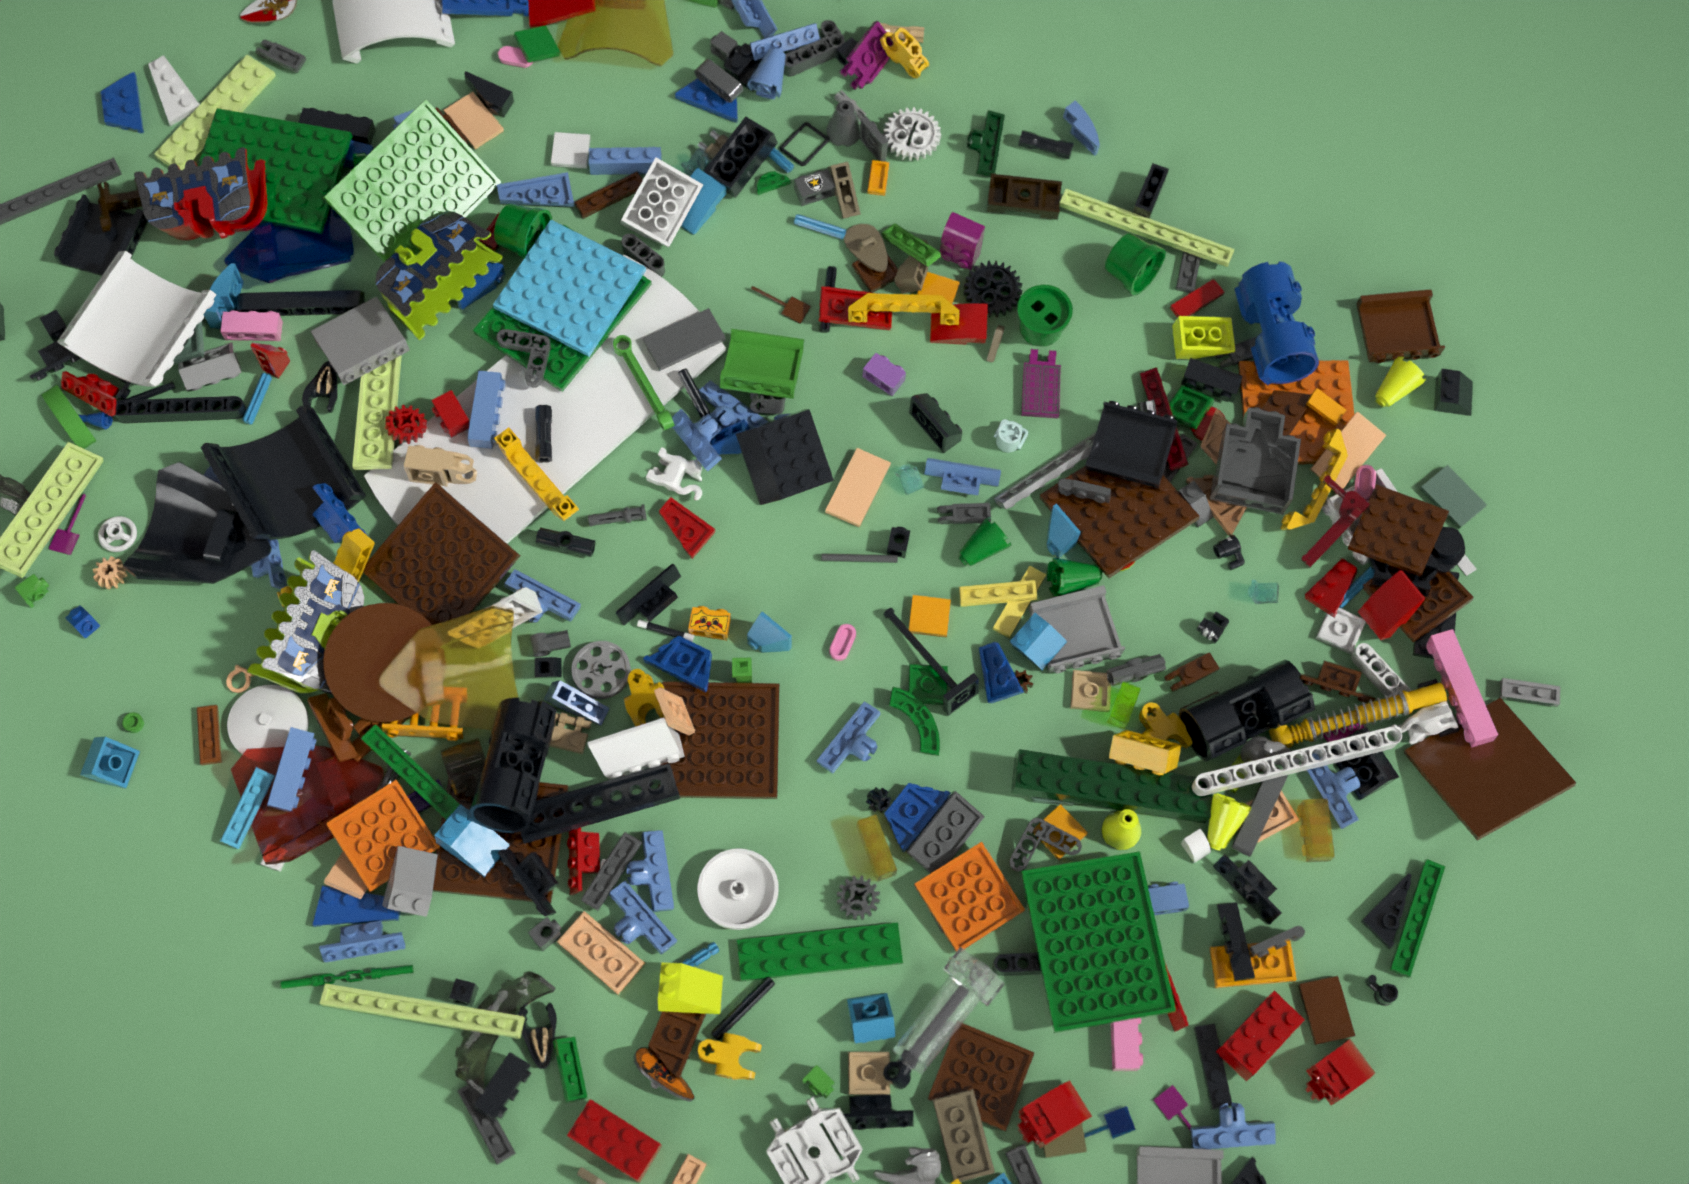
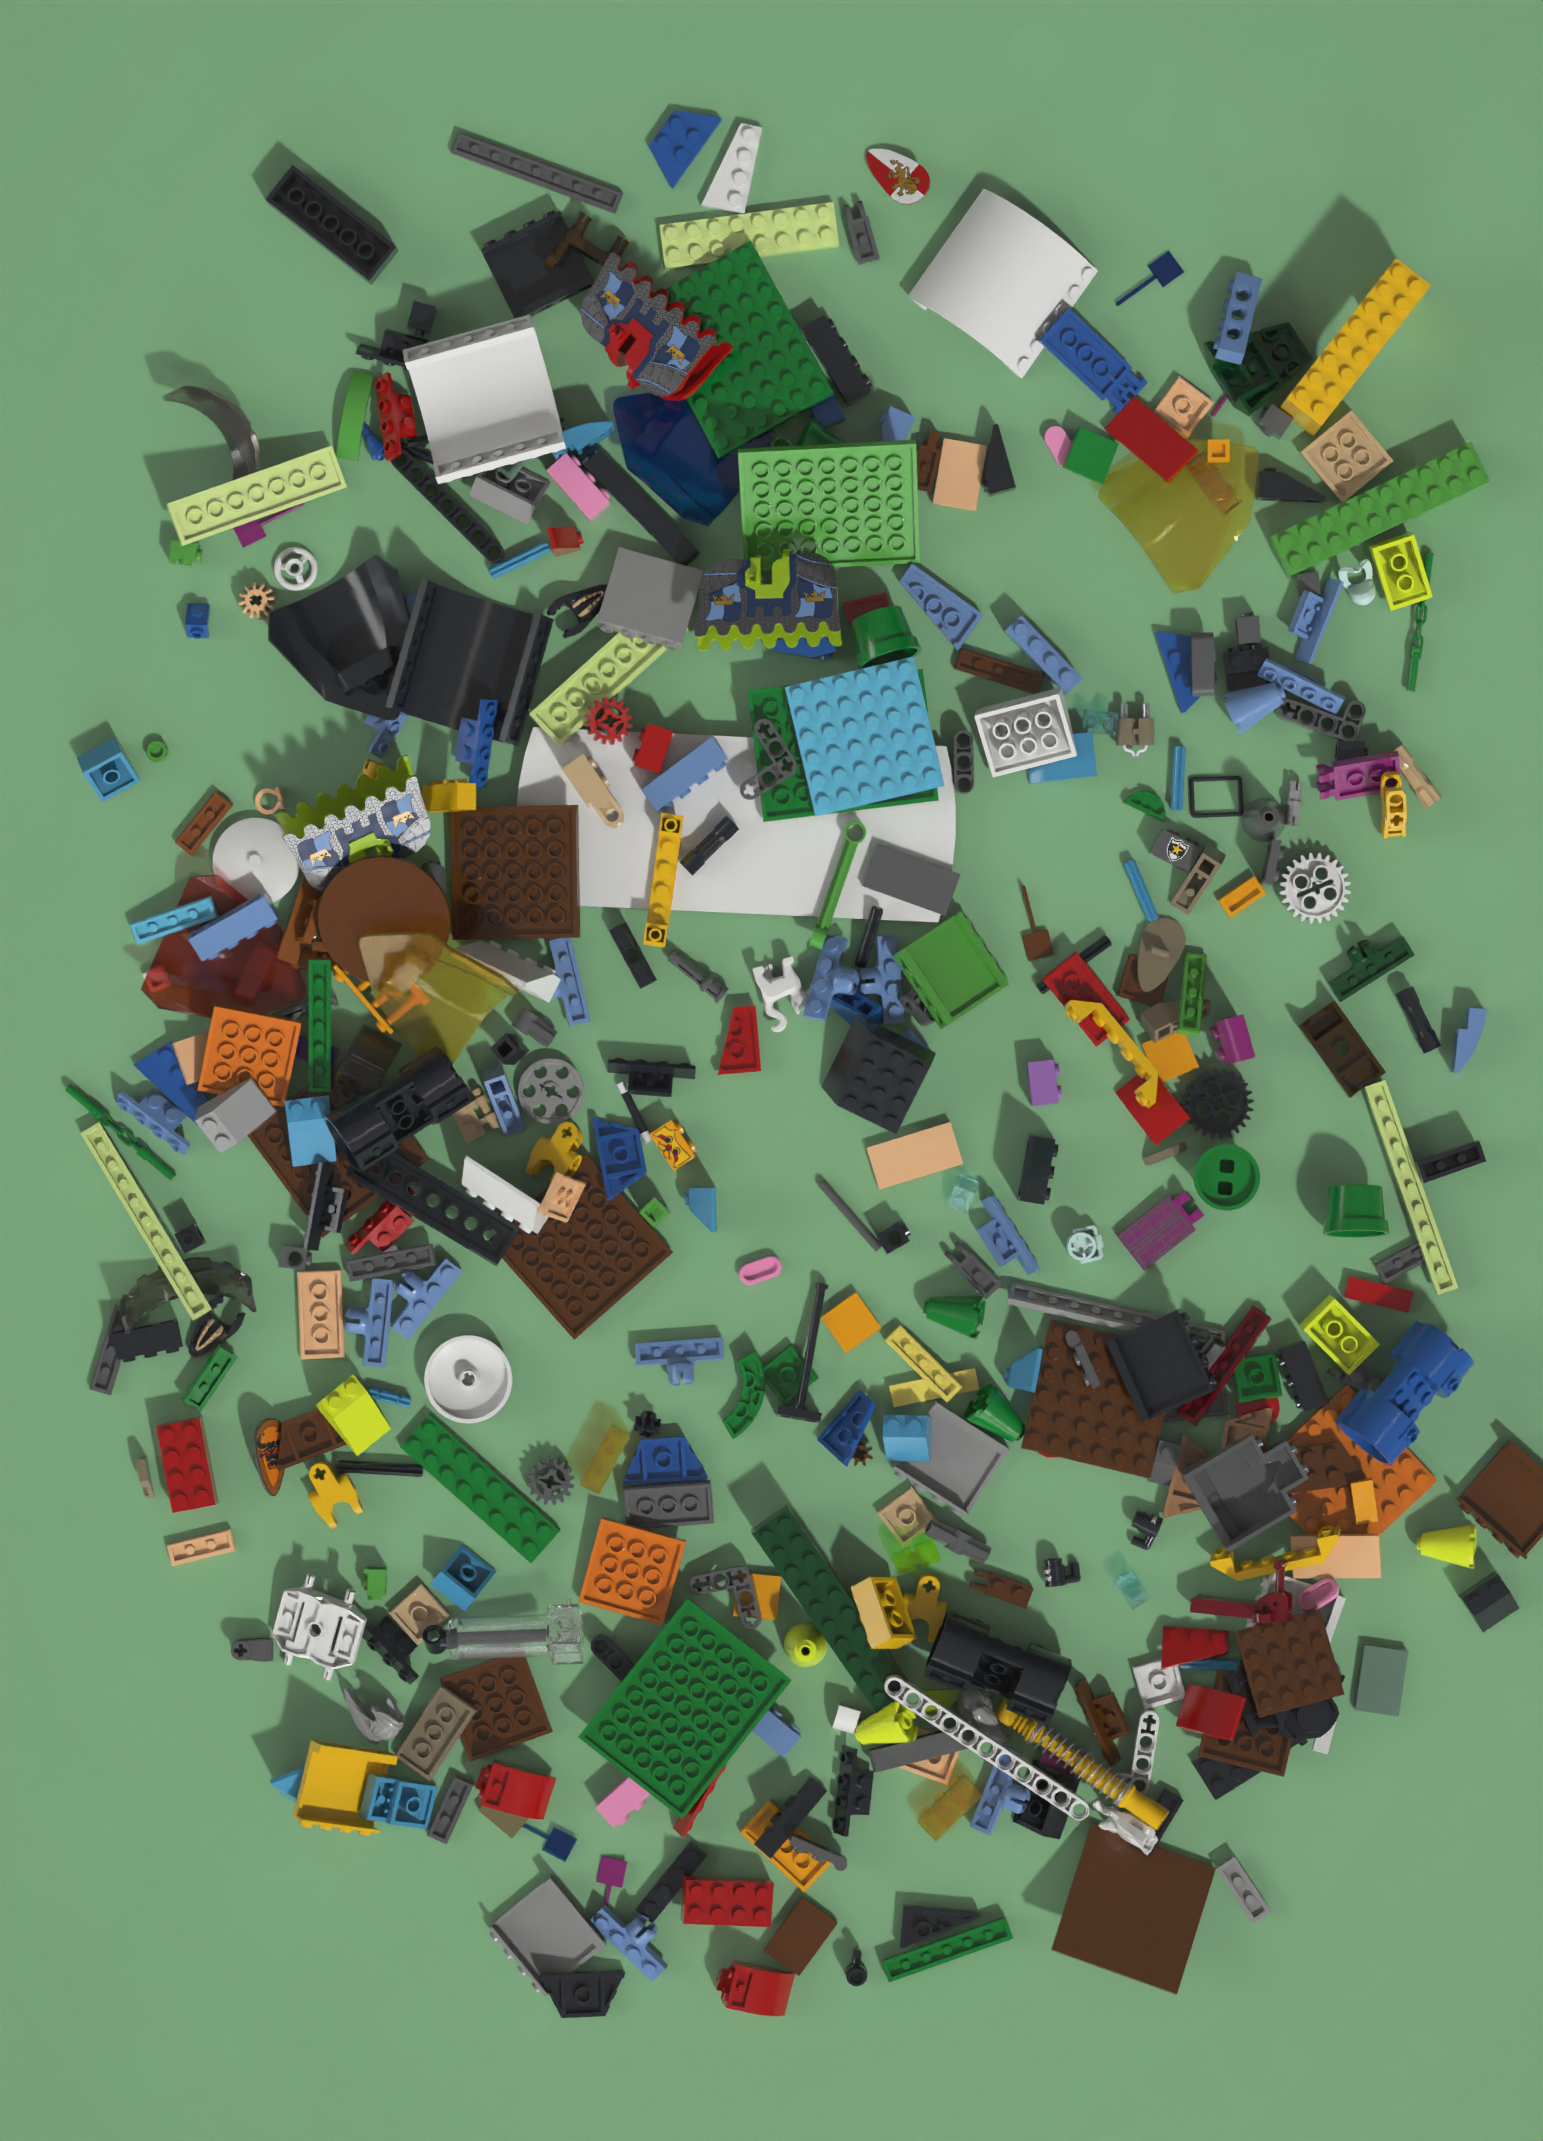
camera: 55 degrees right, 20 degrees up
(570, 150) = (1011, 592): white tile -> none
(741, 155) = (1140, 758): black slope -> none
(1461, 688) = (1187, 1831): bright pink brick -> none

